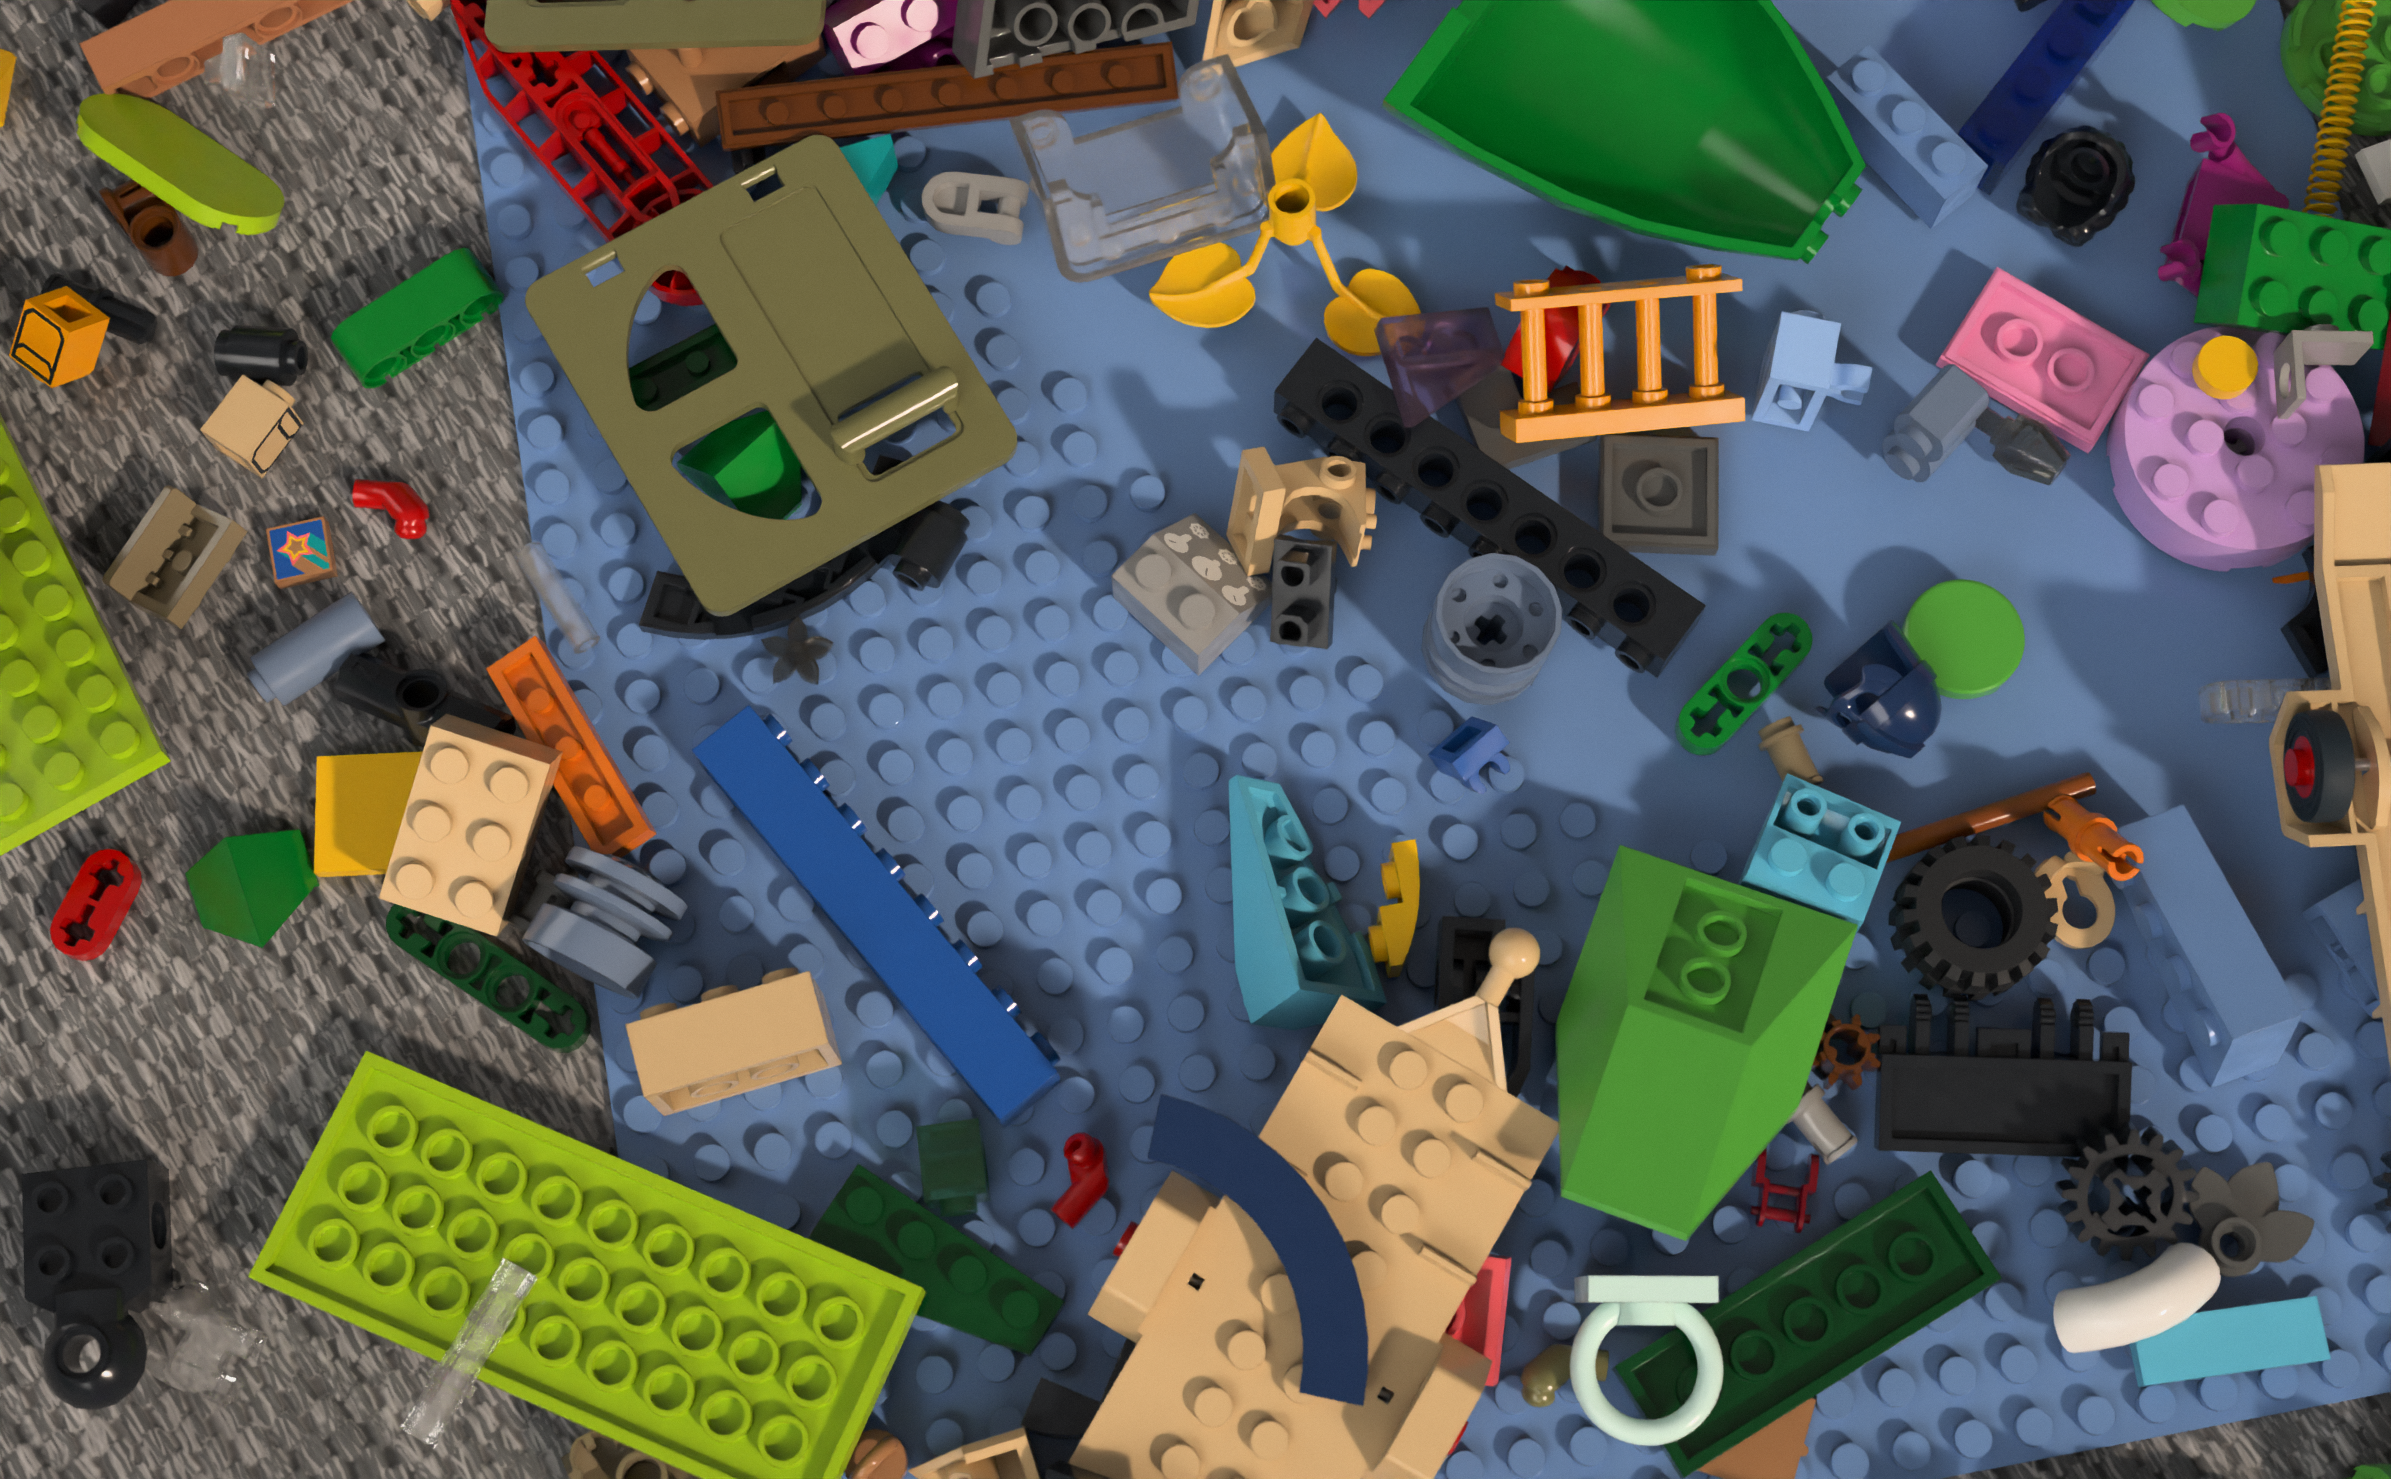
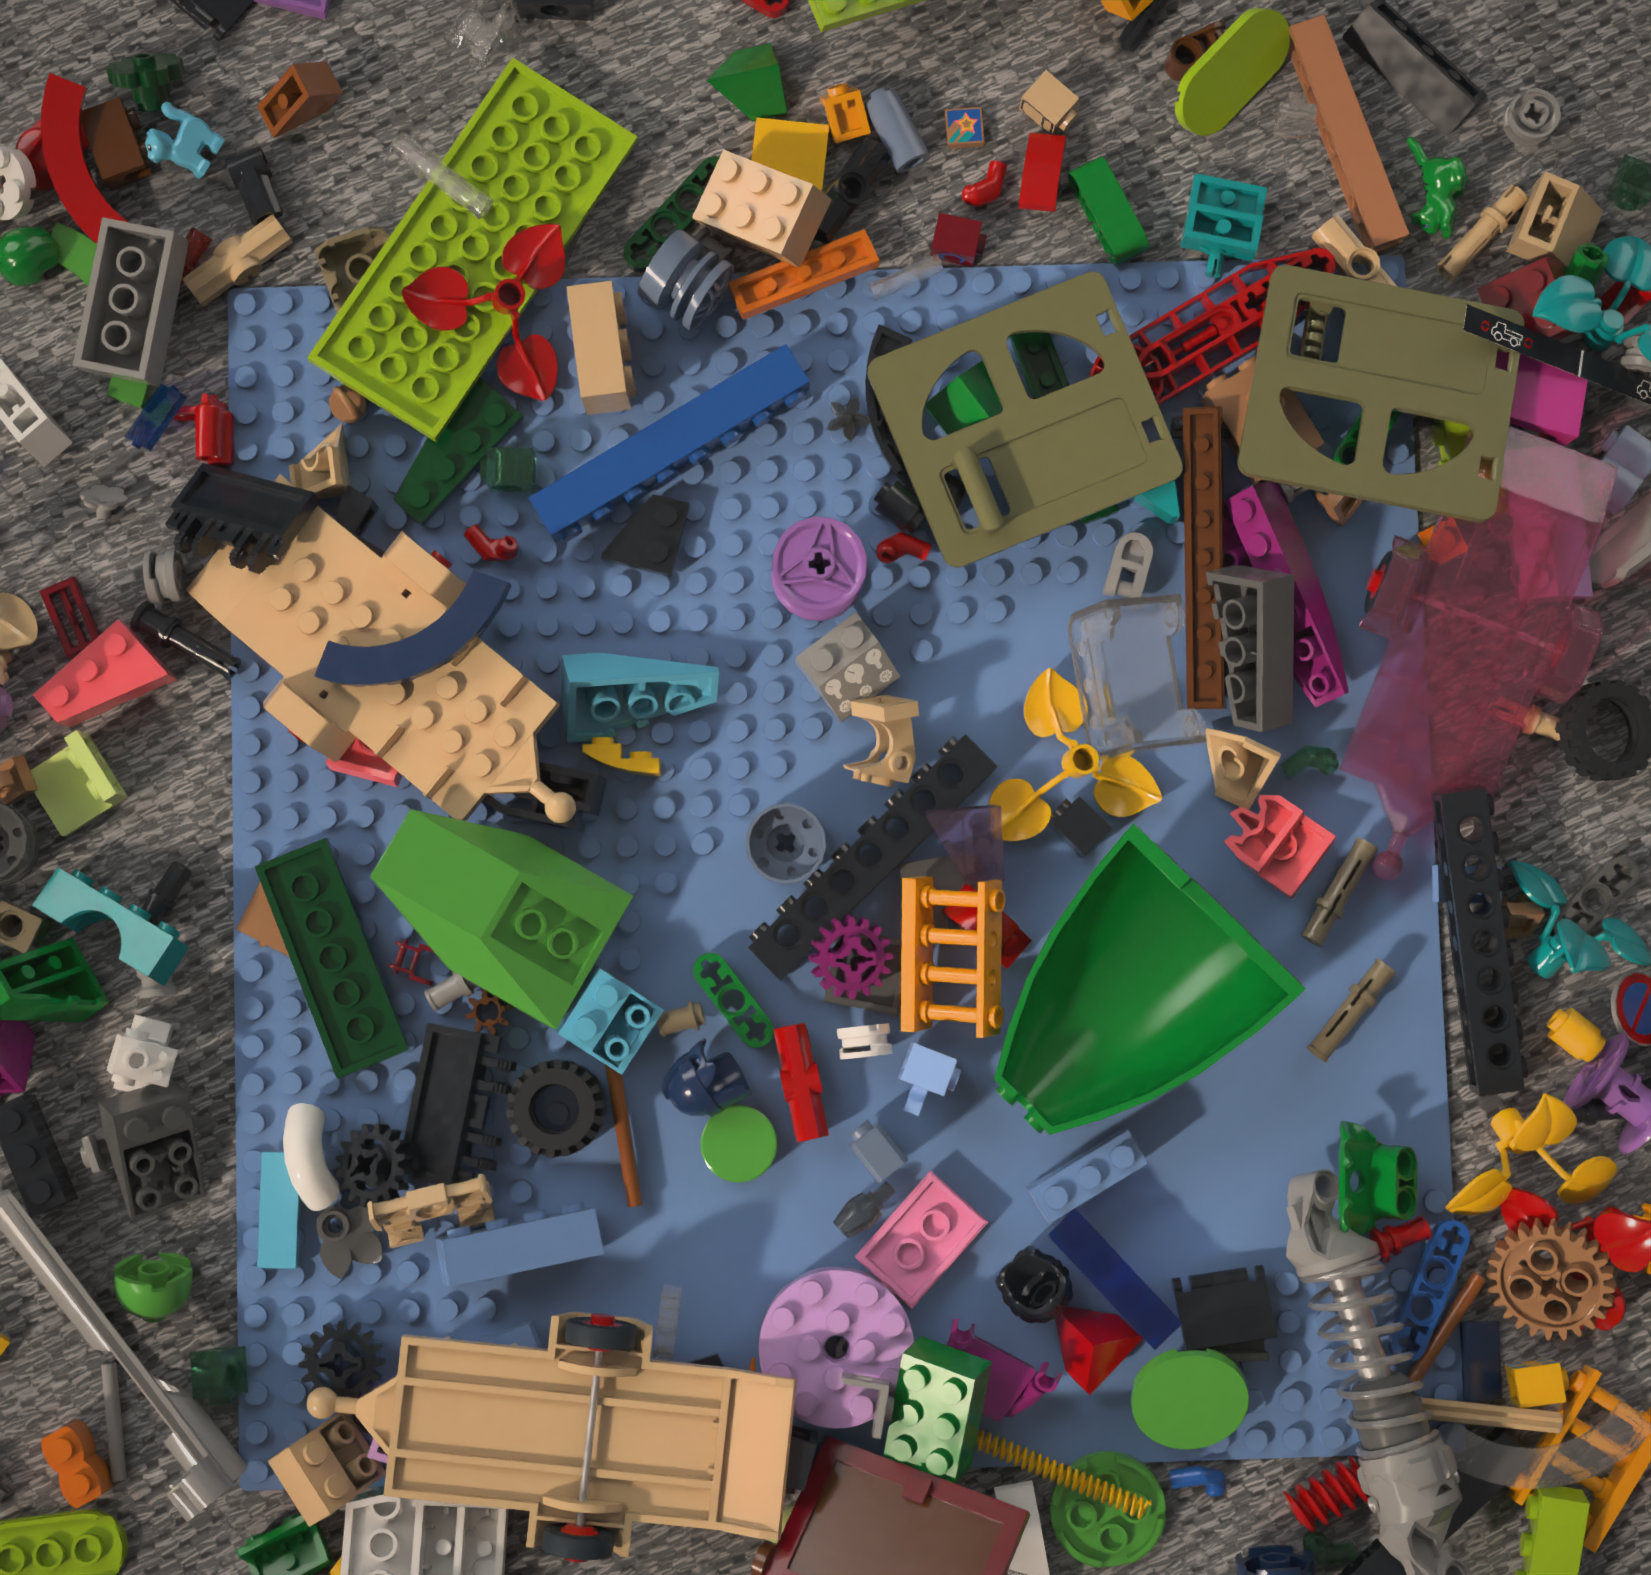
camera: 95 degrees right, 10 degrees up
(173, 557) = (969, 50): dark tan bracket -> none
(260, 354) = (1097, 112): black brick -> none
(293, 733) = (845, 112): none -> light orange bracket
(364, 421) = (1042, 172): none -> red slope
(416, 150) = (1223, 220): none -> teal plate
(487, 531) = (958, 239): none -> dark red brick
(594, 1171) = (538, 259): none -> red plant
(988, 541) = (900, 546): none -> red arm
(1031, 925) = (651, 537): none -> black wing
(1050, 644) = (840, 557): none -> medium lavender piece
(1303, 592) = (829, 731): black hips -> none
(1383, 218) = (1079, 825): none -> black brick
(1469, 750) = (714, 819): blue tile -> none
(1551, 1371) = (333, 805): olive arm -> none
(1646, 1302) = (355, 858): light aqua tile -> none
(1648, 506) = (851, 972): none -> magenta gear
(1770, 473) = (864, 1036): none -> white wheel
(1849, 561) = (801, 1082): none -> red piece
(2090, 885) = (569, 1164): tan piece -> none
(2093, 837) = (592, 1192): orange pin -> none
(2143, 93) = (1093, 1344): none -> red slope
(2154, 1036) = (404, 1214): none -> tan piece
(2225, 367) = (879, 1343): yellow tile -> none

